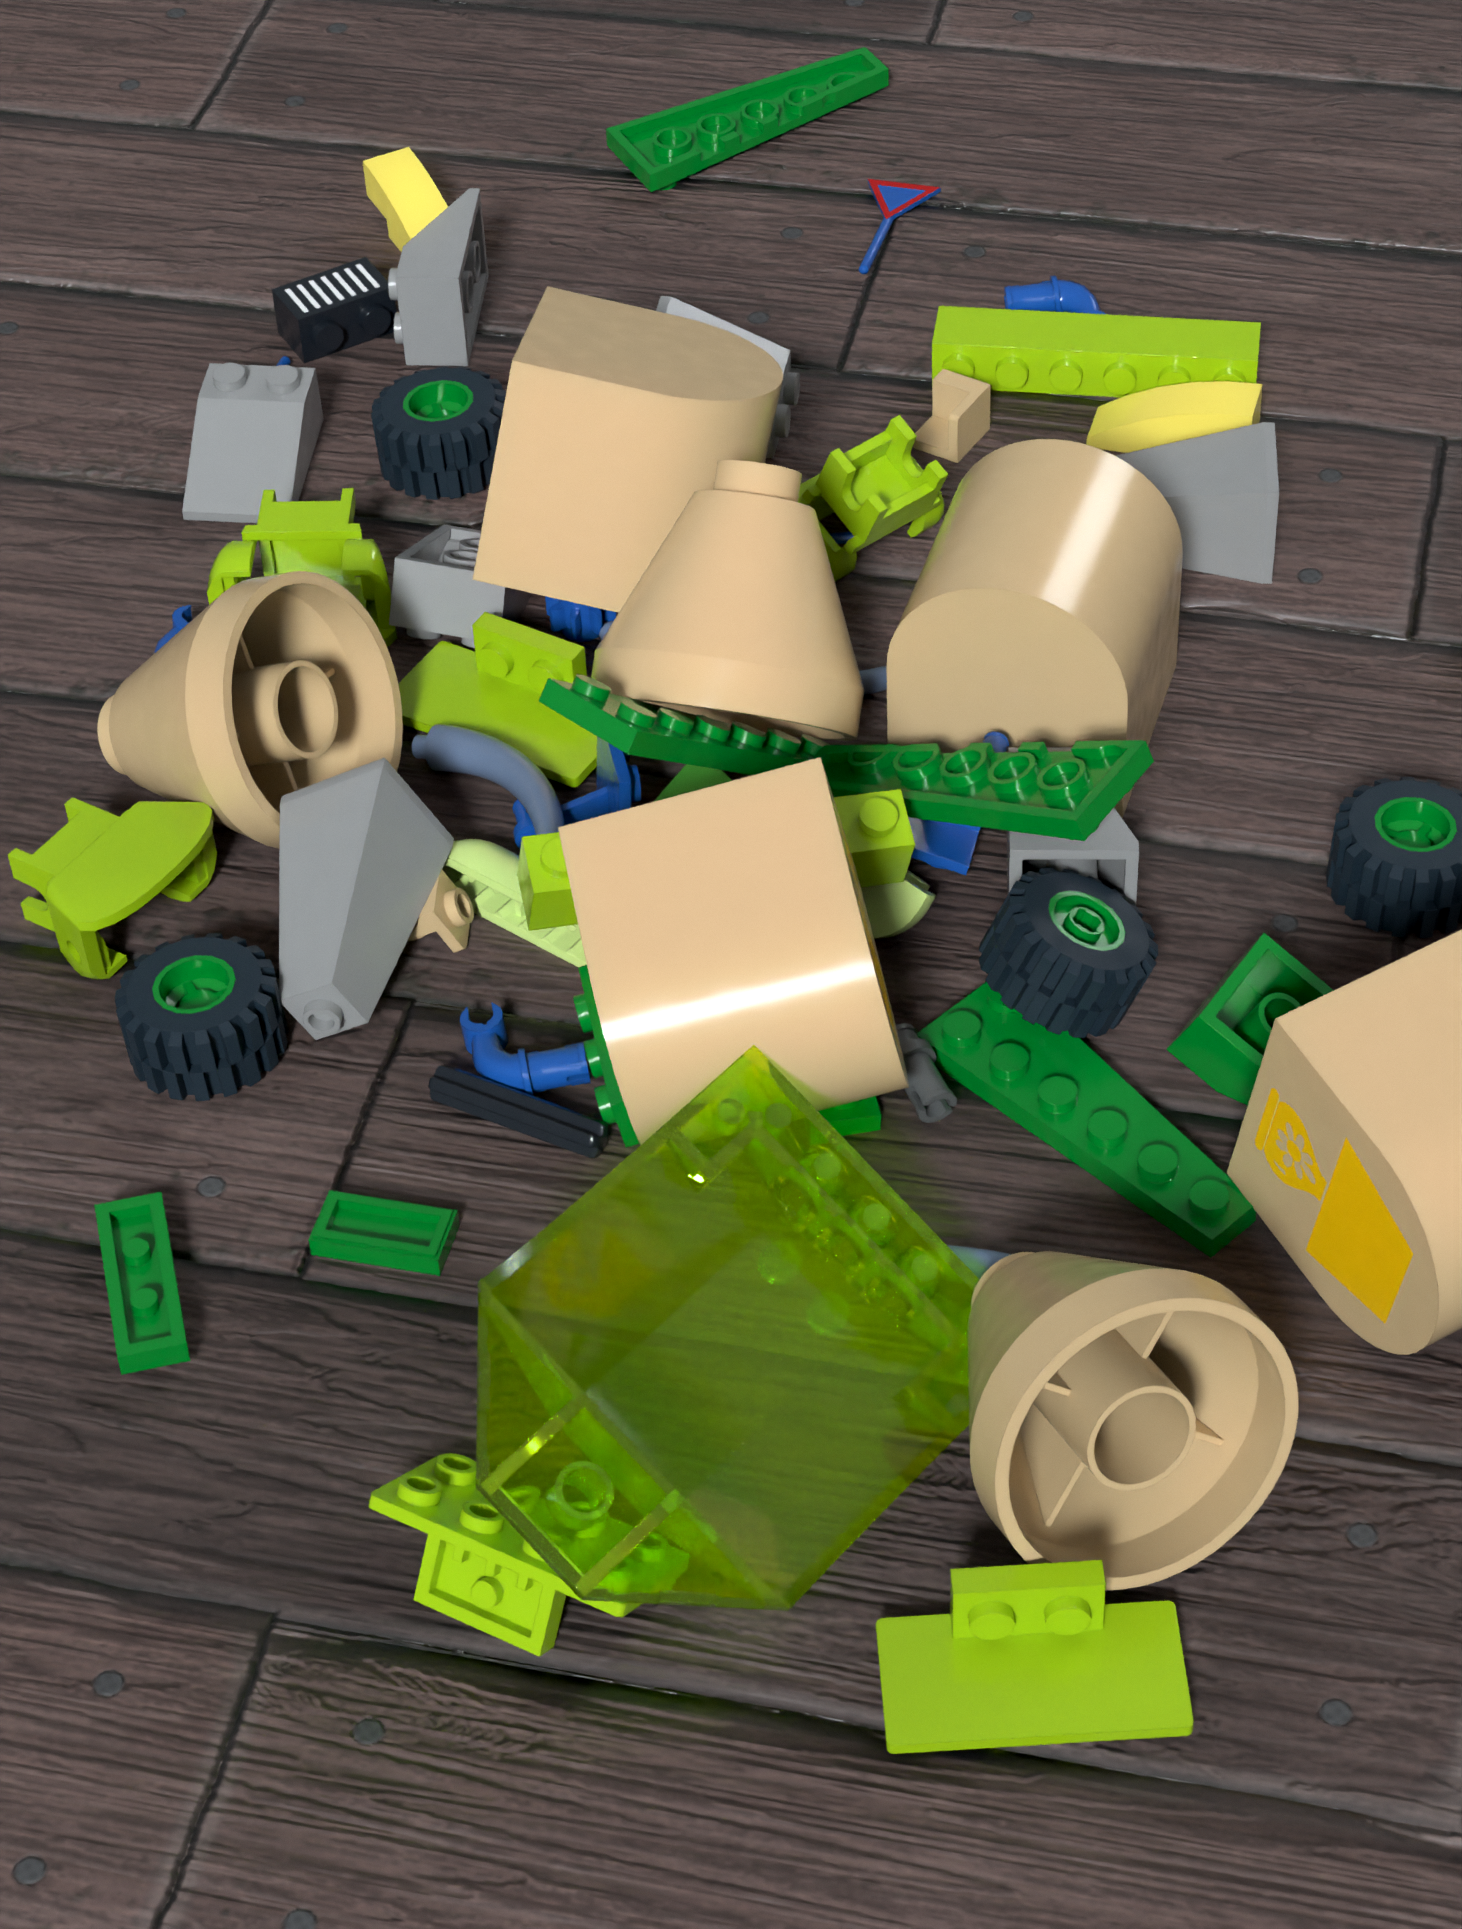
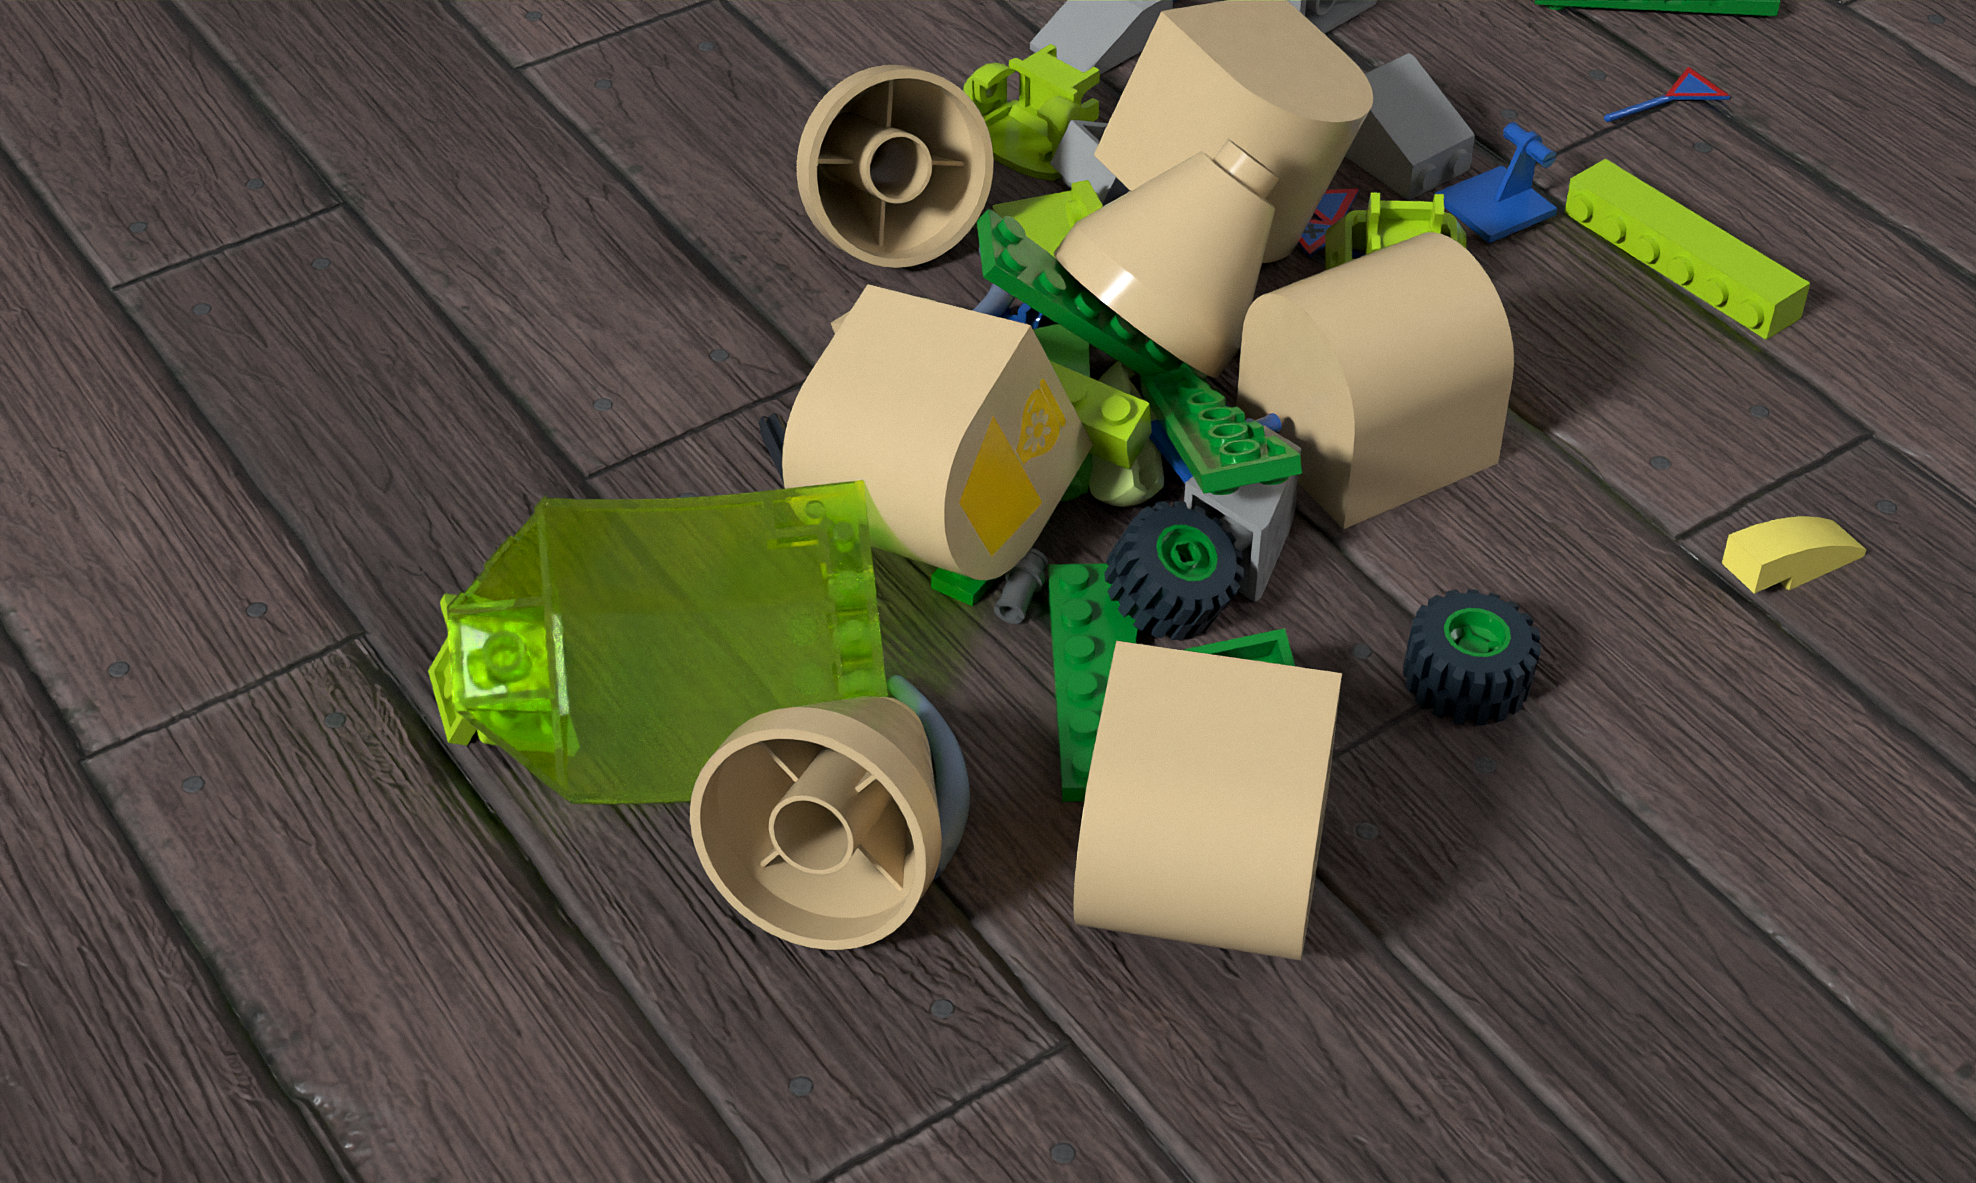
camera: 40 degrees right, 0 degrees up
(111, 867) = (728, 203): lime piece -> none
(141, 1283) = (500, 425): green plate -> none
(202, 1016) = (688, 310): black wheel -> none
(351, 888) = (820, 286): light grey slope -> none
(384, 1232) = (644, 474): green tile -> none
(861, 405) = (1503, 198): none -> blue plate
(957, 418) = (1547, 239): tan panel -> none
(1031, 1664) = (666, 931): lime bracket -> none
(1051, 296) = (1703, 197): blue piece -> none
(1174, 414) = (1688, 317): light yellow slope -> none
(1222, 498) = (1613, 366): light grey slope -> none

